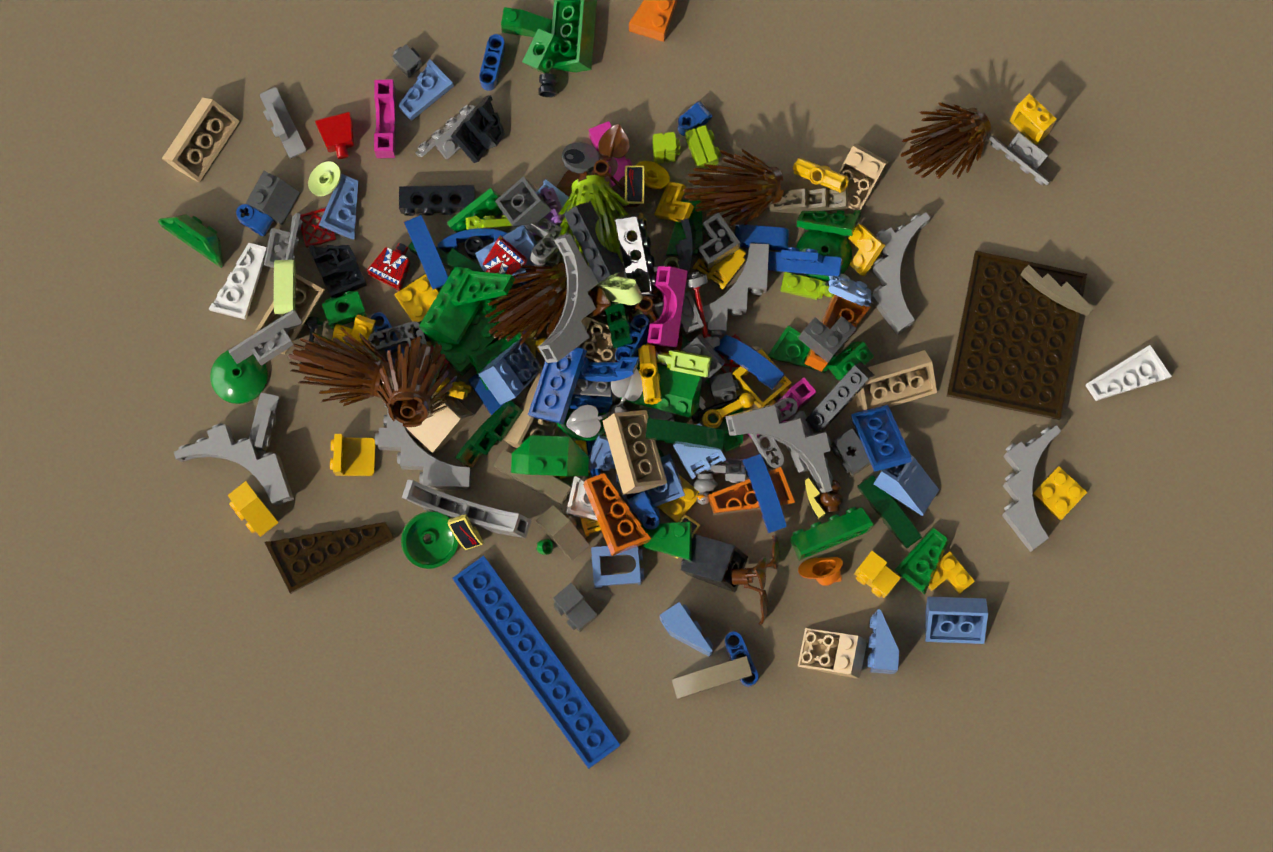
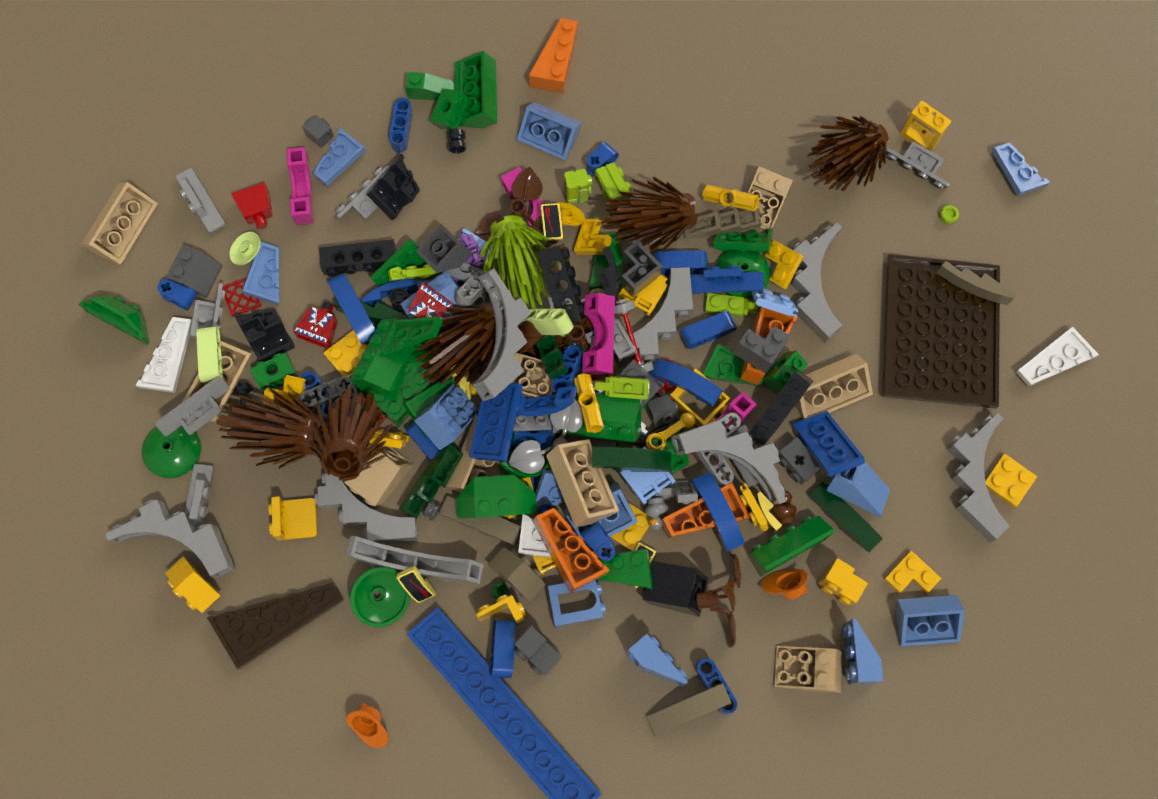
camera: 10 degrees left, 5 degrees down
(408, 659) = (367, 725): none -> orange piece
(487, 462) = (432, 510): none -> dark grey bush
(542, 600) = (502, 648): none -> blue beam
(546, 559) = (502, 603): none -> yellow bracket
(580, 157) = (494, 204): dark grey tile -> none
(602, 262) = (529, 294): black arch -> none
(643, 83) = (549, 130): none -> medium blue slope
(780, 310) = (708, 330): none -> blue beam
(801, 500) = (756, 514): none -> yellow plate
(923, 560) = (886, 563): green wing -> none
(1045, 213) = (949, 214): none -> lime tile
(1125, 175) = (1017, 171): none -> medium blue wing

